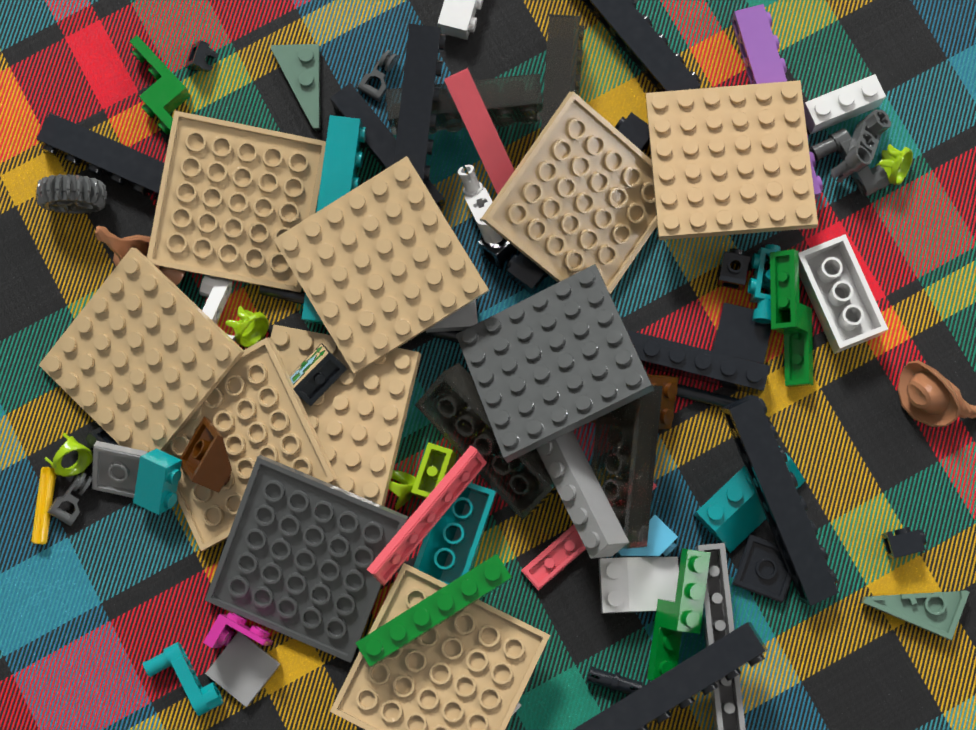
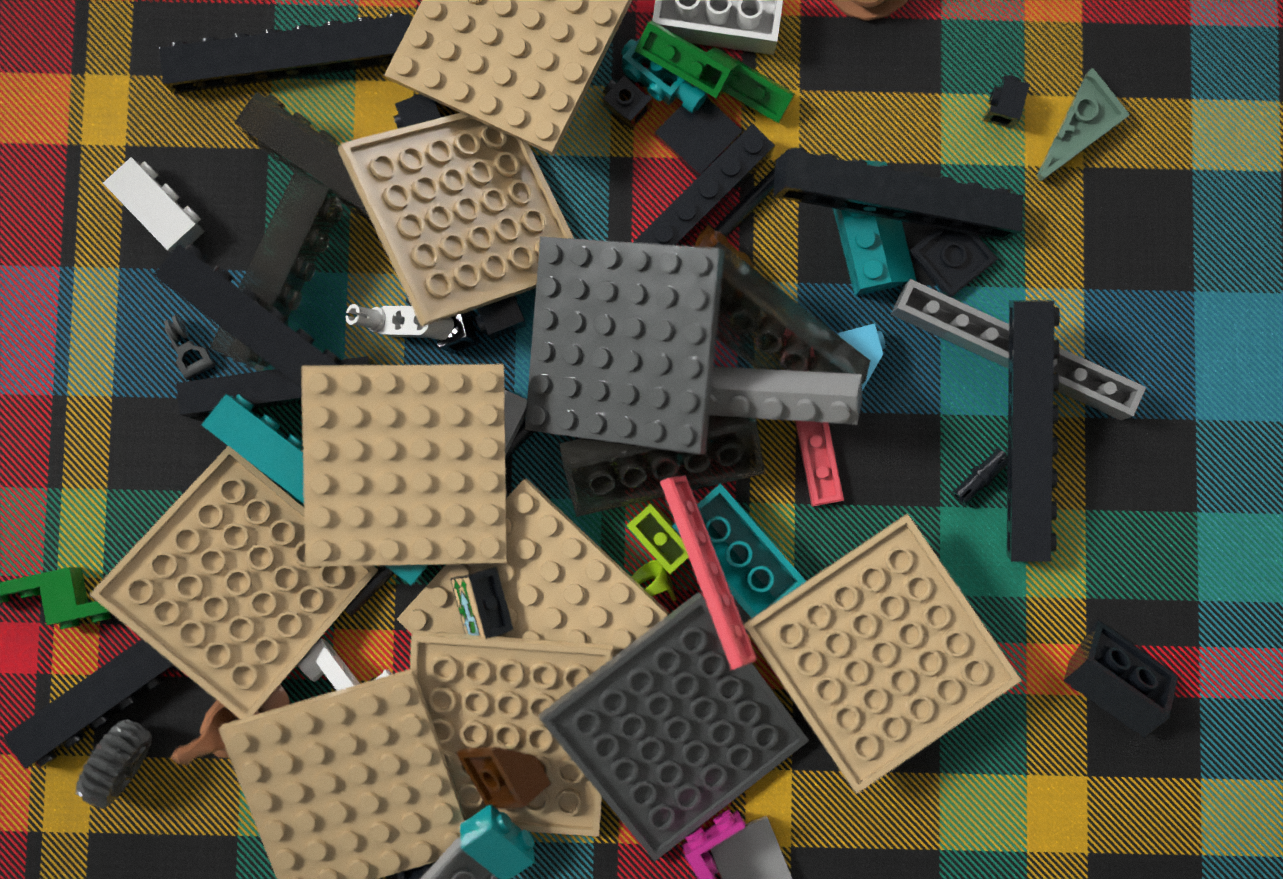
camera: 70 degrees left, 5 degrees up
(197, 57) = (40, 534): black tile -> none
(250, 327) = (384, 647): lime piece -> none
(302, 70) = (128, 428): sand green wing -> none
(433, 610) = (816, 622): green brick -> none
(480, 128) = (319, 270): coral tile -> none
(636, 583) = (899, 394): white slope -> none
(679, 615) = (956, 370): green bracket -> none

